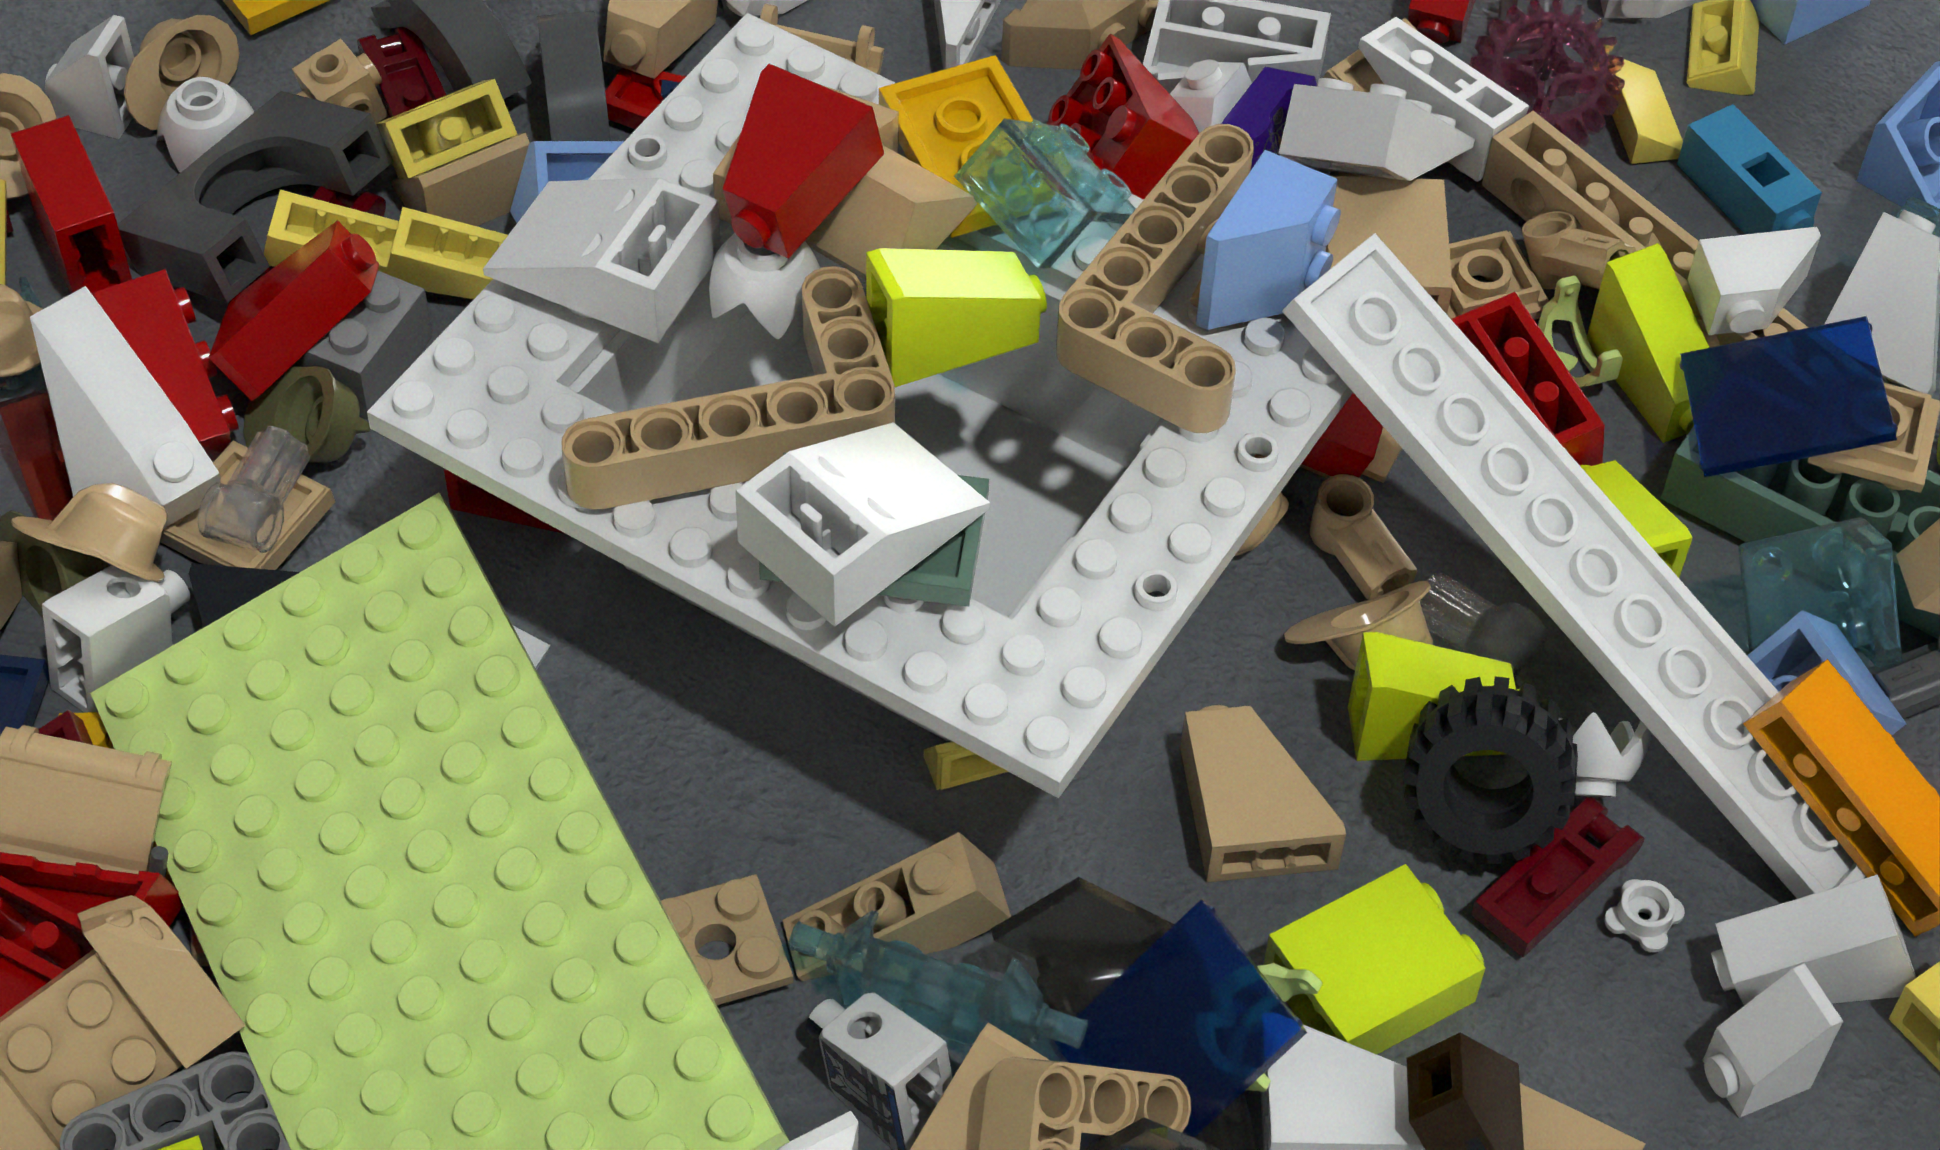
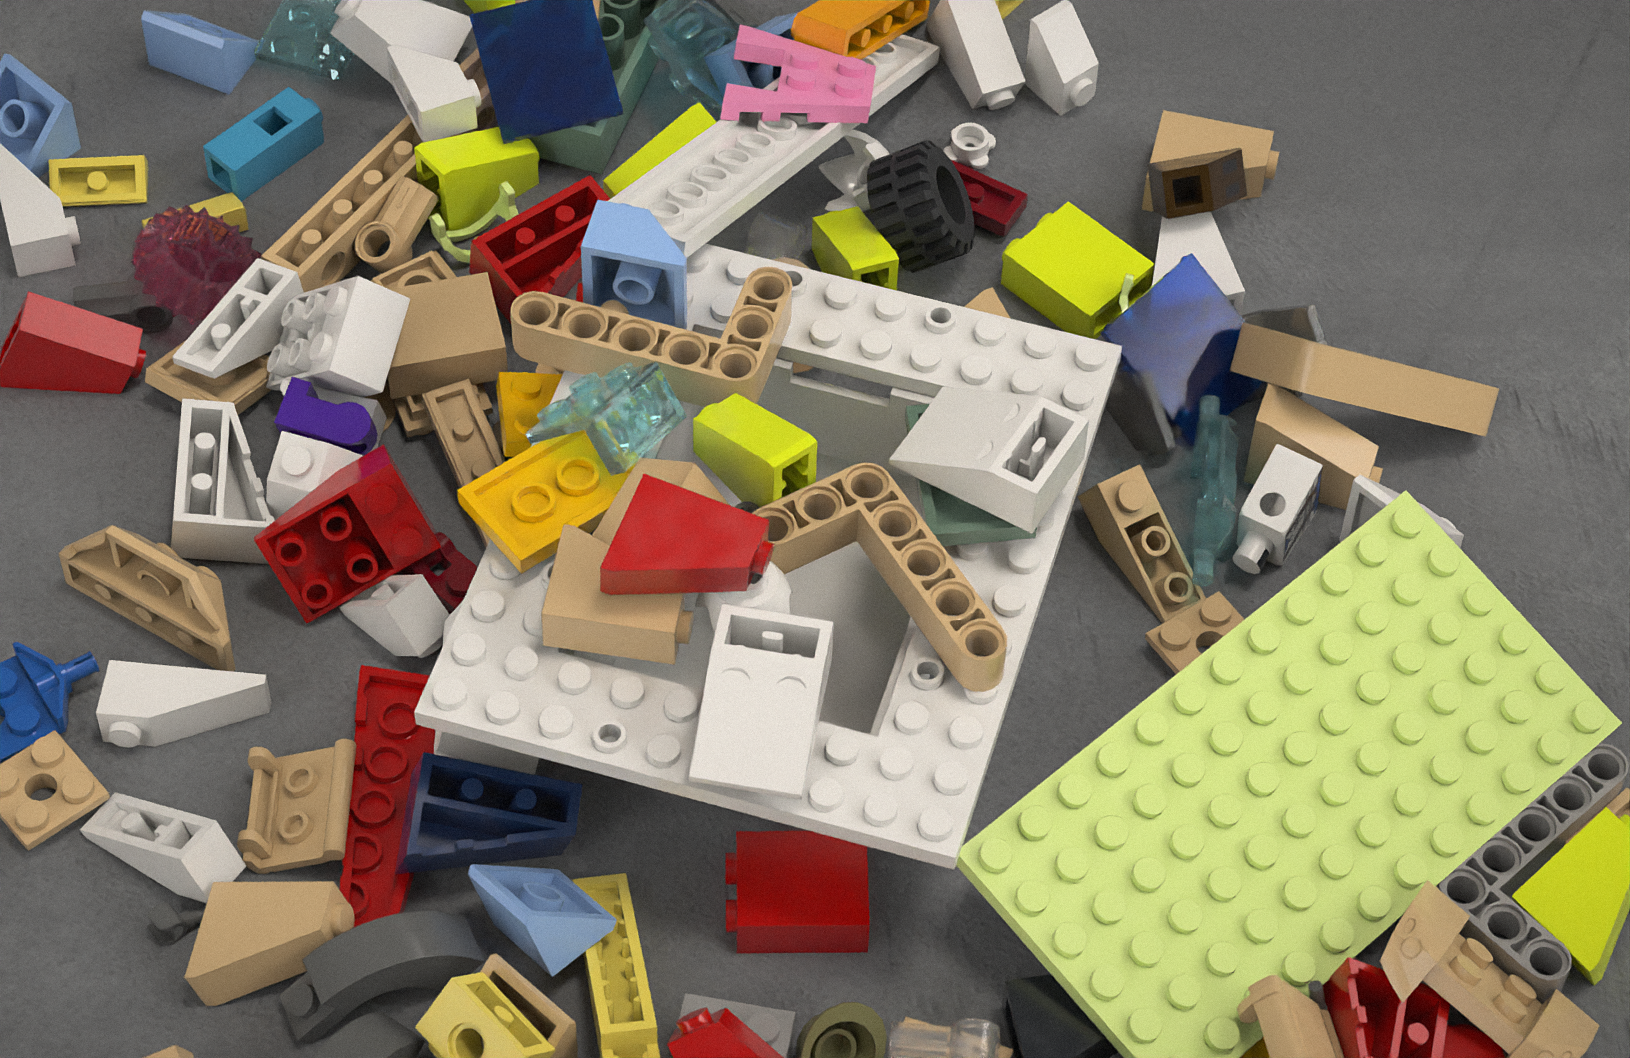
camera: 105 degrees left, 0 degrees up
(1681, 654) = (810, 81): none -> bright pink wing

